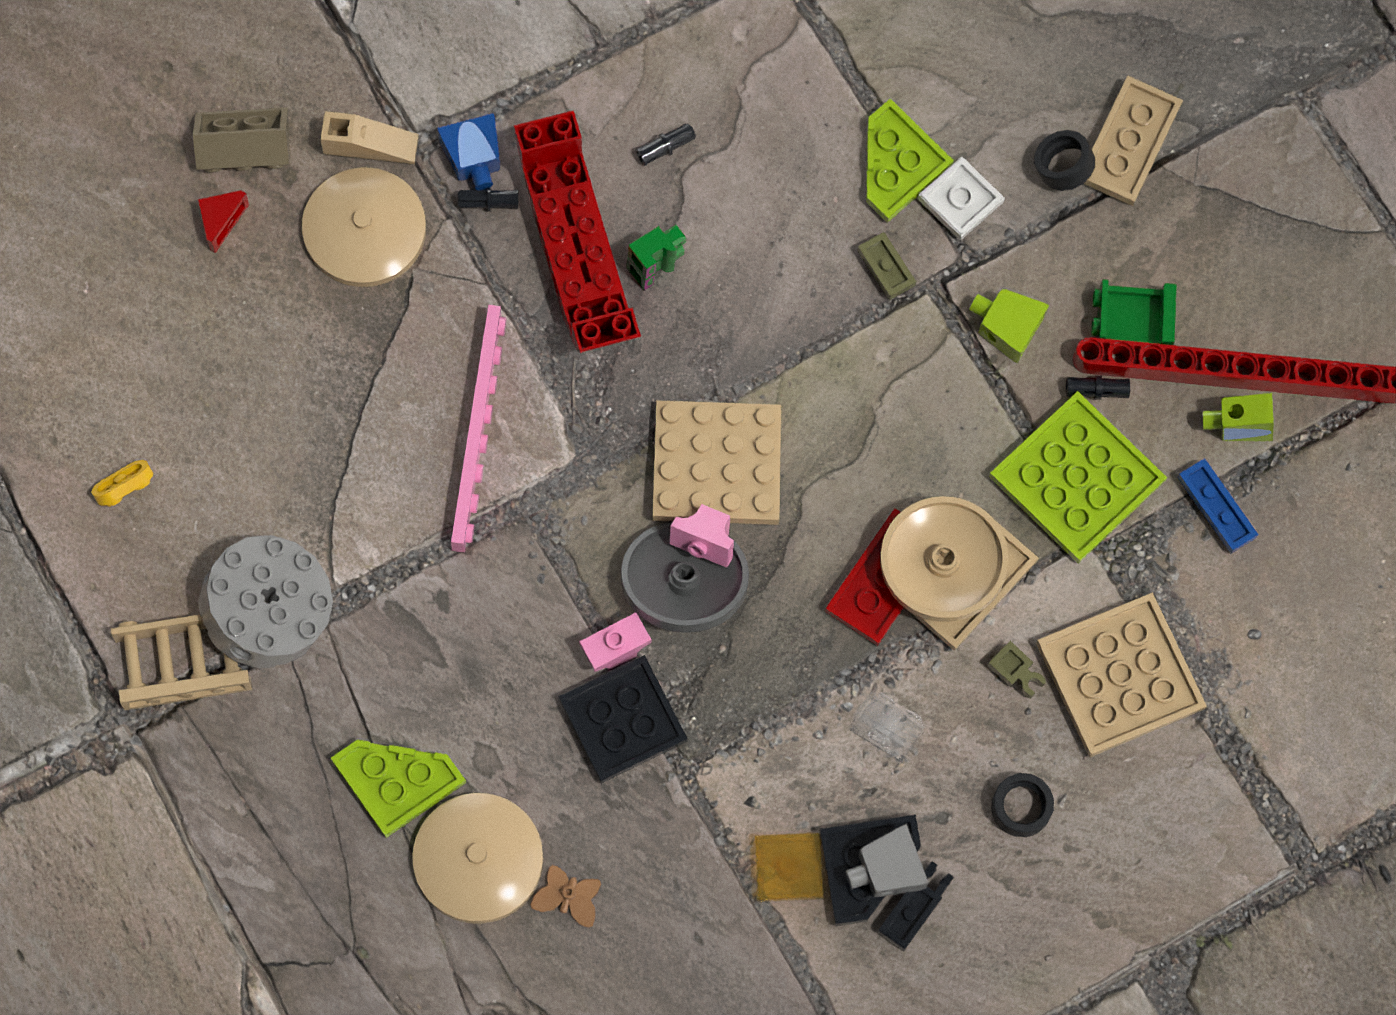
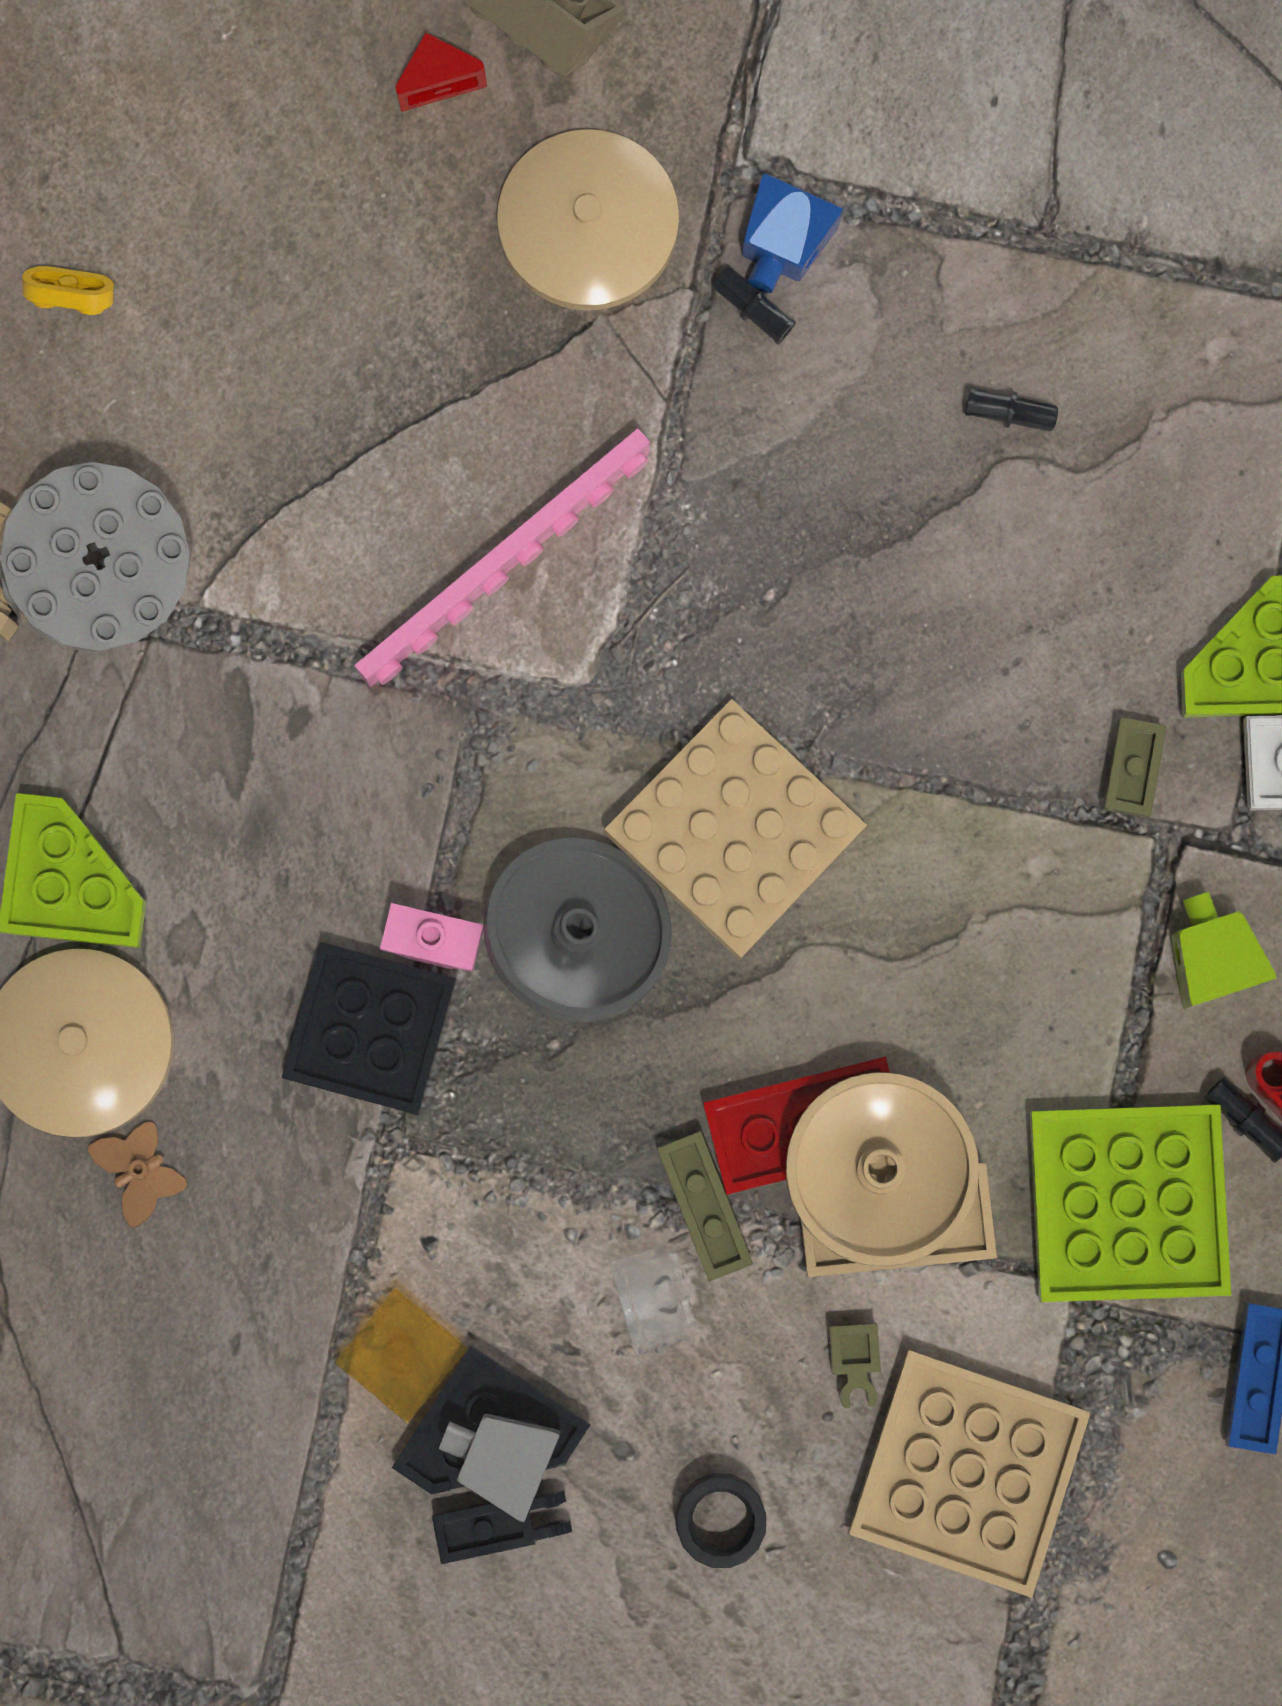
camera: 45 degrees right, 10 degrees up
(367, 139) = (677, 119): tan slope -> none
(573, 233) = (804, 431): red slope -> none
(654, 252) = (878, 526): green hips -> none
(704, 535) = (638, 903): bright pink brick -> none
(872, 659) = (704, 1206): none -> olive plate

